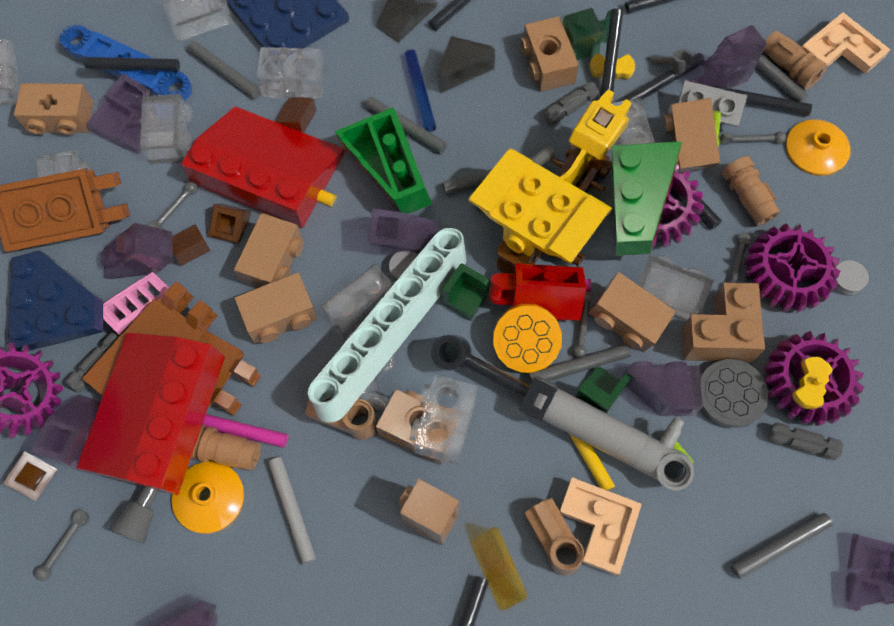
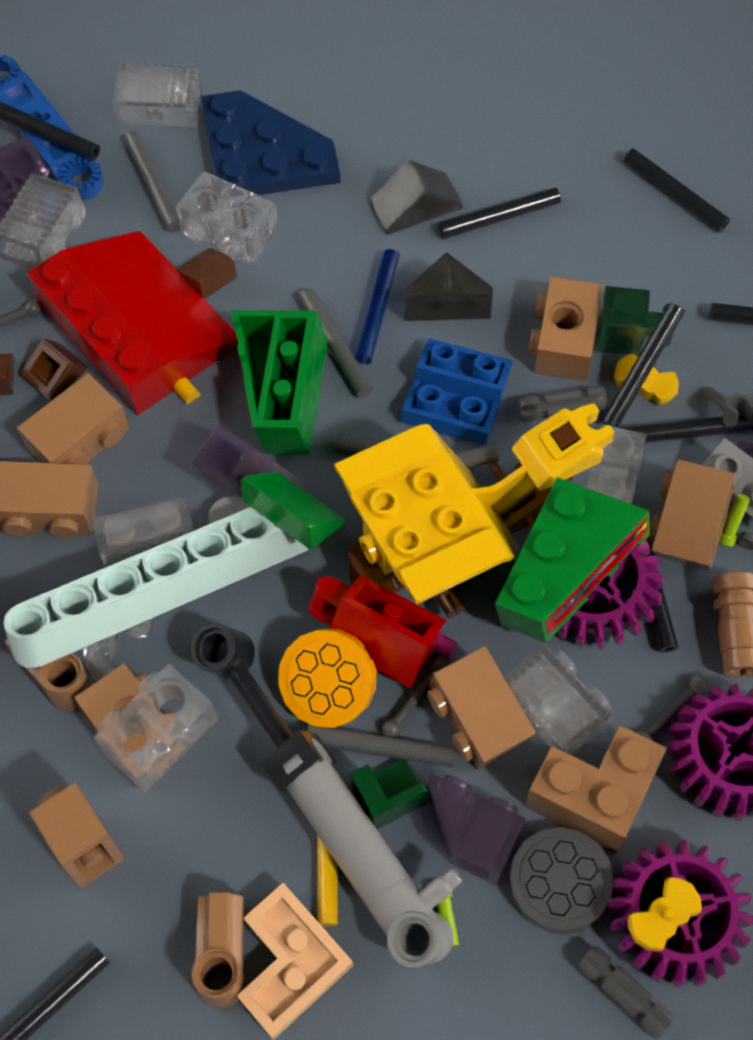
camera: 25 degrees right, 5 degrees down
(448, 241) = (290, 507): none -> green slope
(466, 291) = (283, 583): dark green panel -> none
(499, 569) = (130, 954): clear yellow slope -> none
(501, 123) = (457, 391): none -> blue slope

